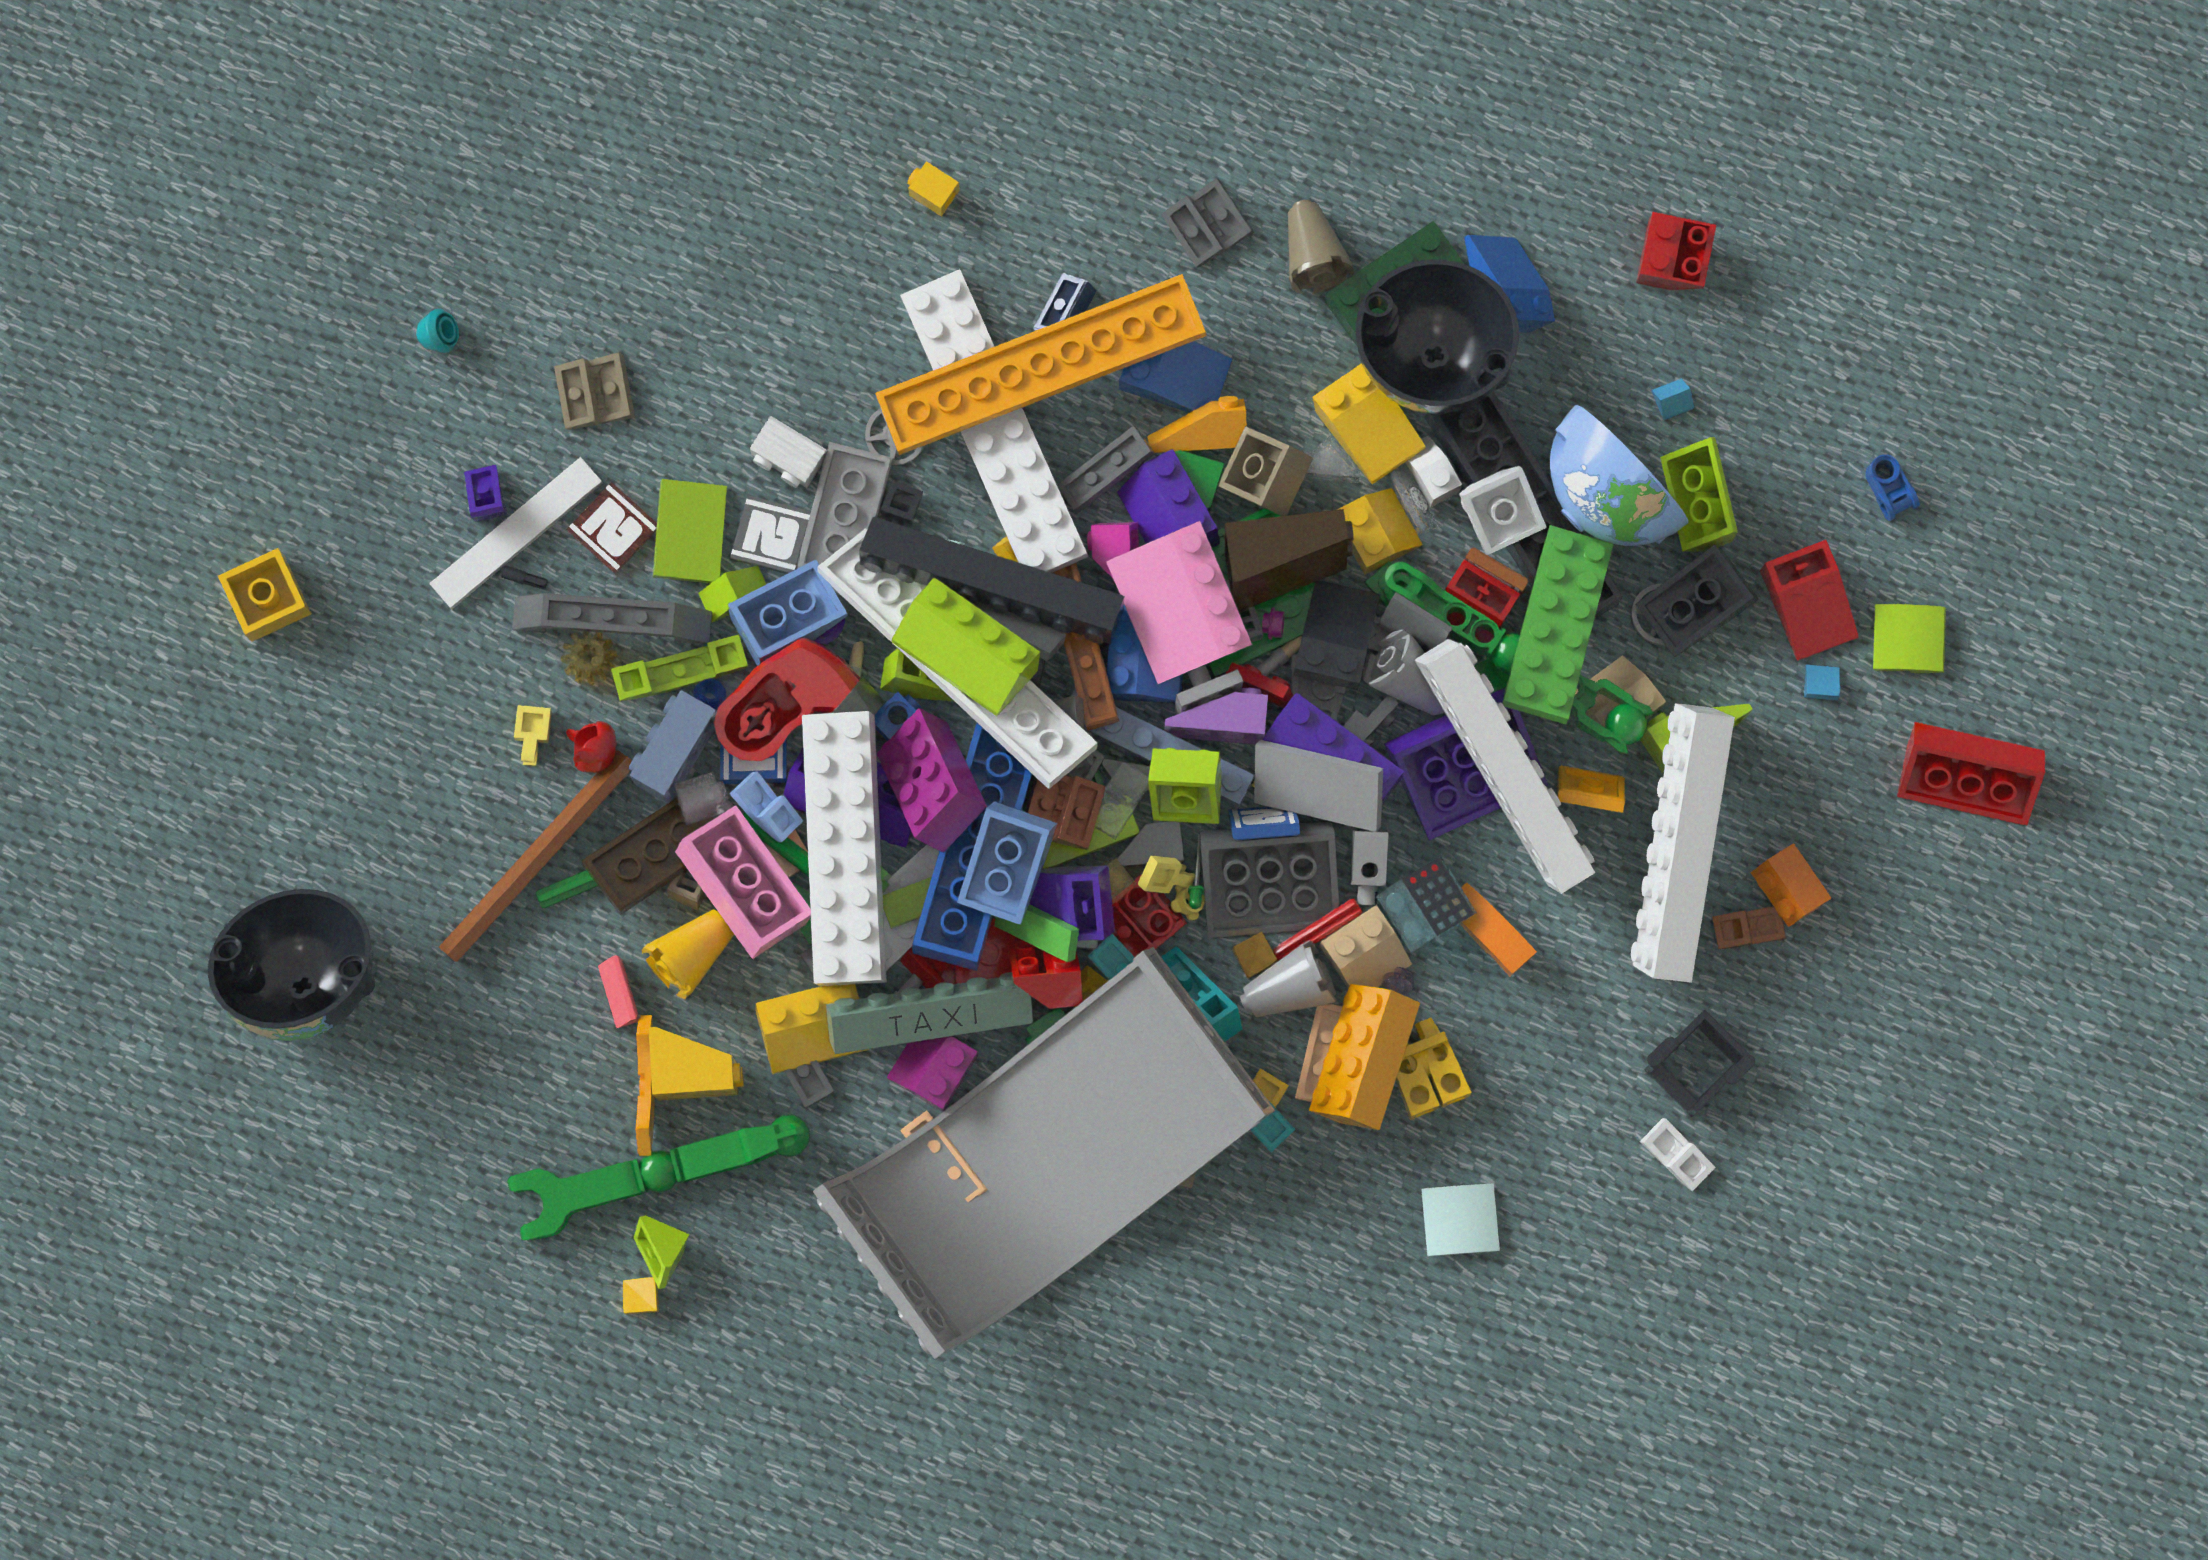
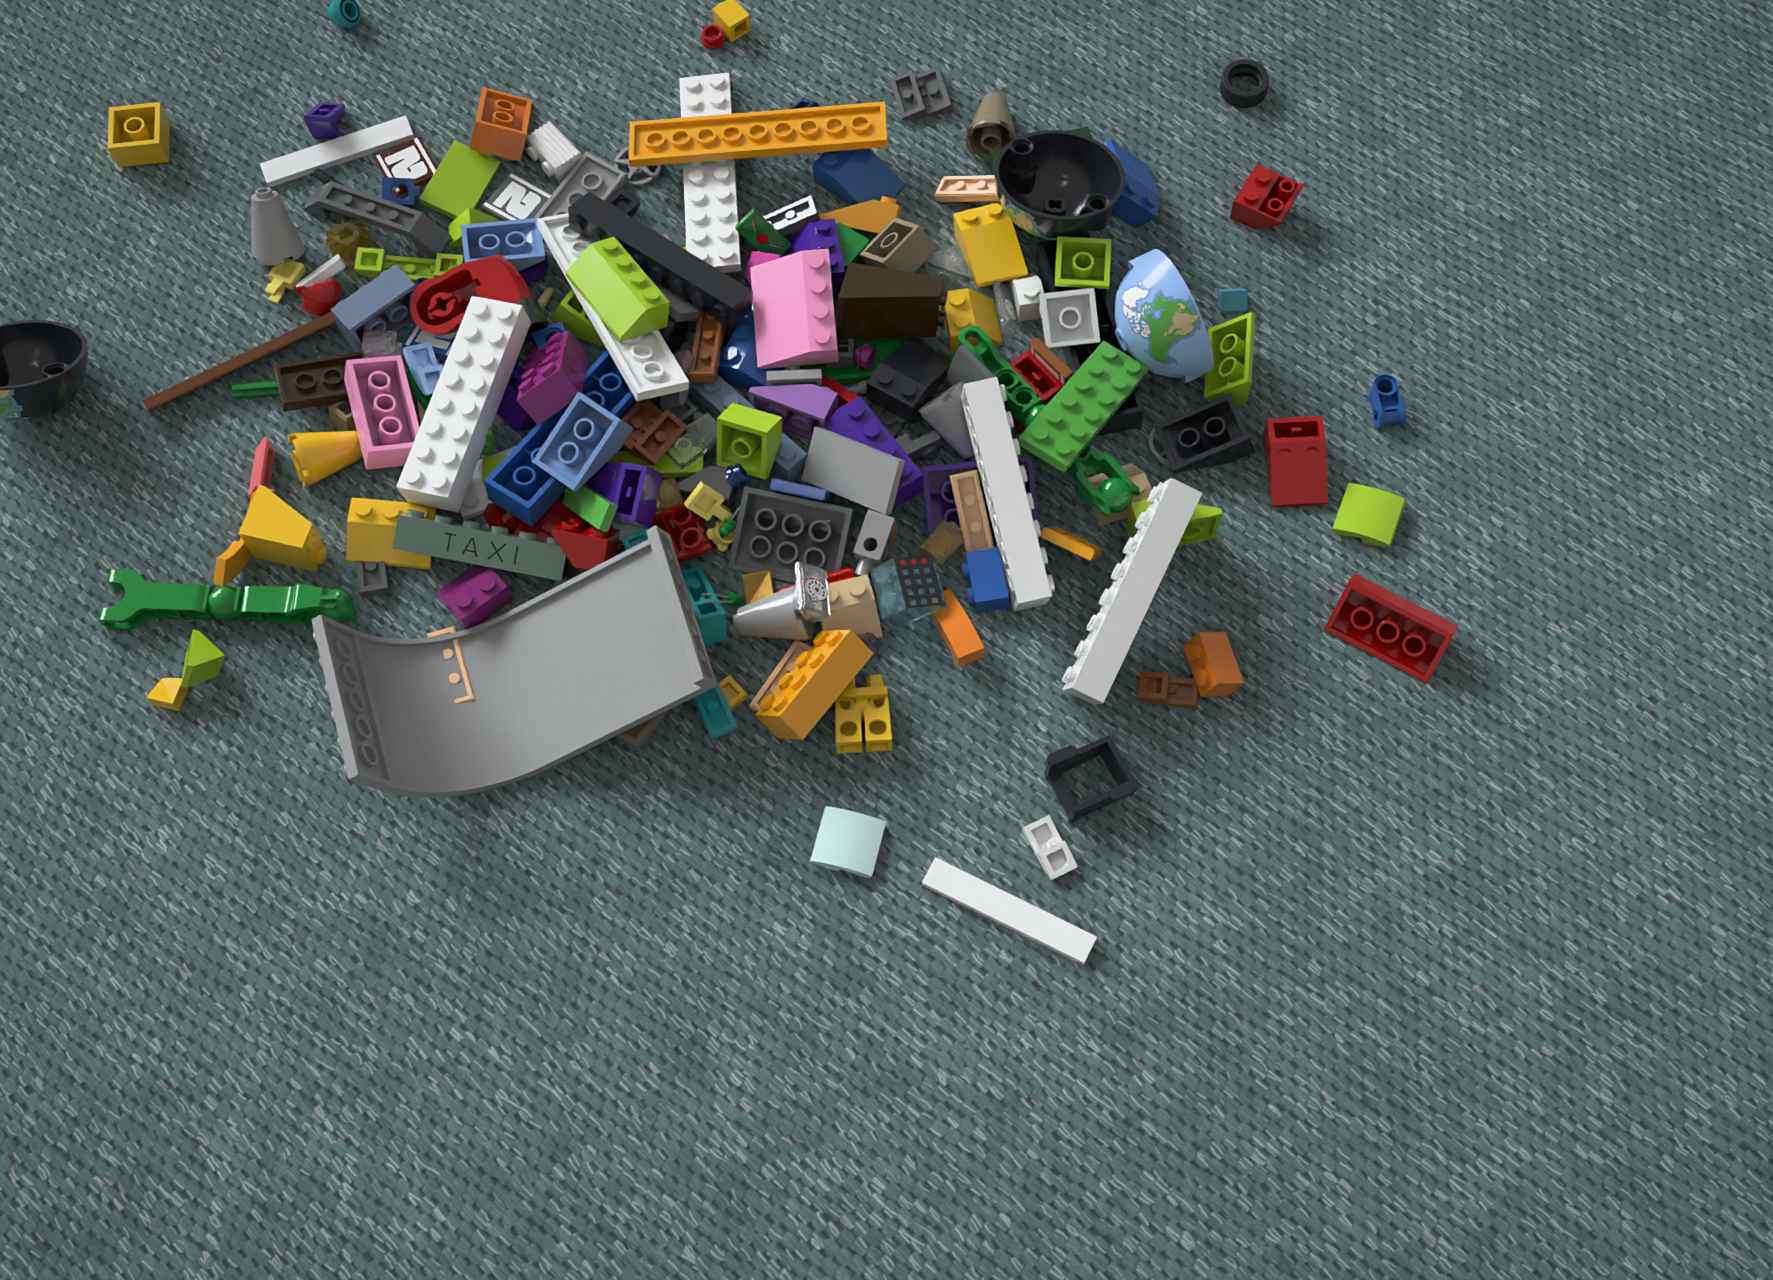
camera: 20 degrees right, 15 degrees down
(504, 687) = (272, 230): none -> light grey cone
(579, 718) = (324, 272): none -> white tile
(594, 391) = (436, 80): dark tan slope -> none
(612, 571) = (390, 184): none -> blue brick
(709, 435) = (501, 124): none -> orange slope
(917, 219) = (712, 37): none -> red plate
(1094, 498) = (762, 234): none -> green tile
(1187, 832) = (737, 476): none -> clear blue plate
(1228, 979) = (730, 598): none -> piece
(1316, 350) = (966, 189): none -> light nougat tile
(1327, 951) = (812, 592): none -> clear slope
(1443, 832) = (942, 541): none -> clear yellow brick
(1466, 787) = (971, 511): none -> light nougat tile
(1497, 438) = (1083, 262): none -> lime slope
(1506, 862) = (986, 580): none -> blue brick
(1606, 62) = (1241, 98): none -> black tyre
(1657, 1239) = (1009, 911): none -> white tile
(1822, 682) = (1287, 528): dark azure slope -> none

